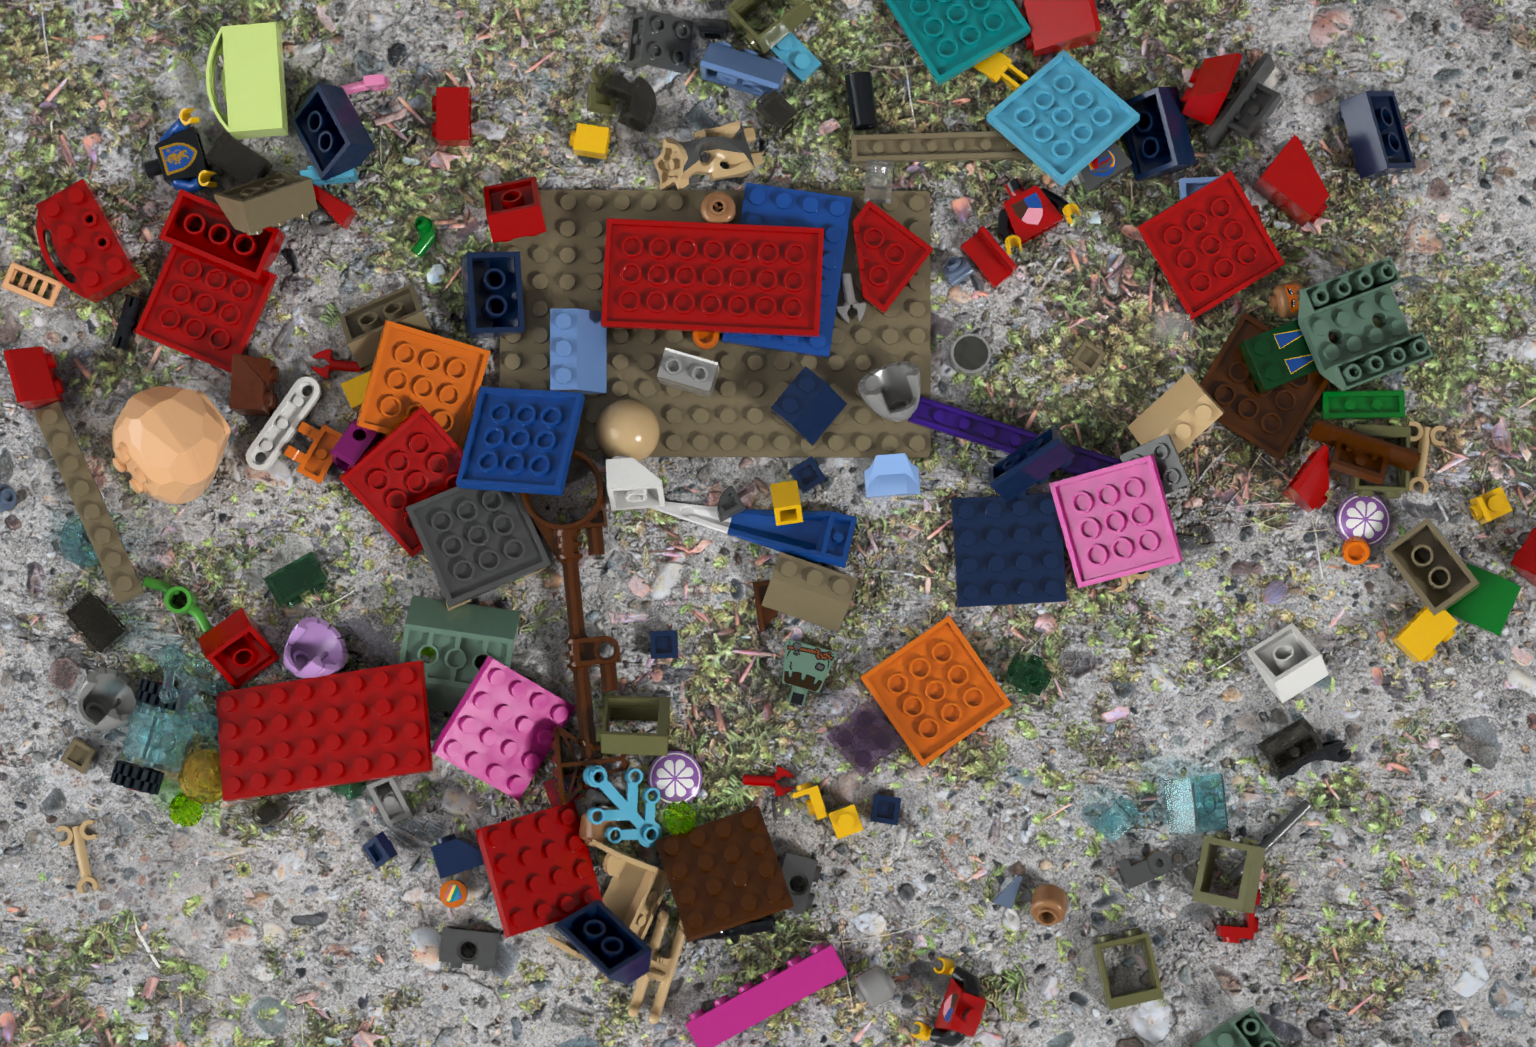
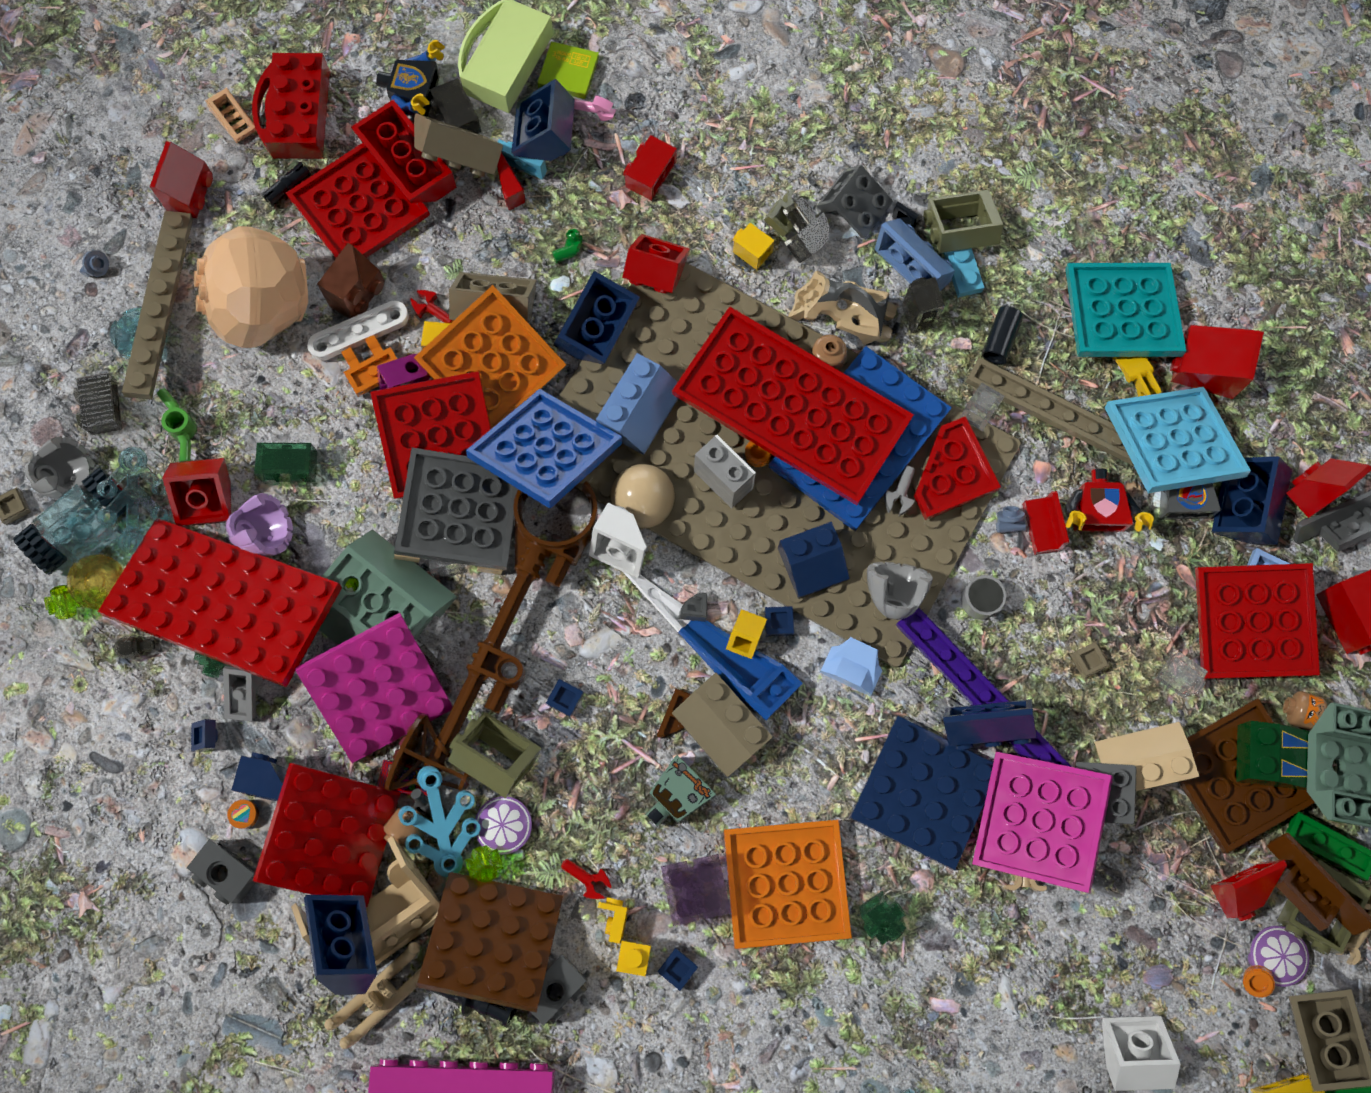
camera: 25 degrees right, 10 degrees down
(317, 58) = (571, 67): none -> lime tile

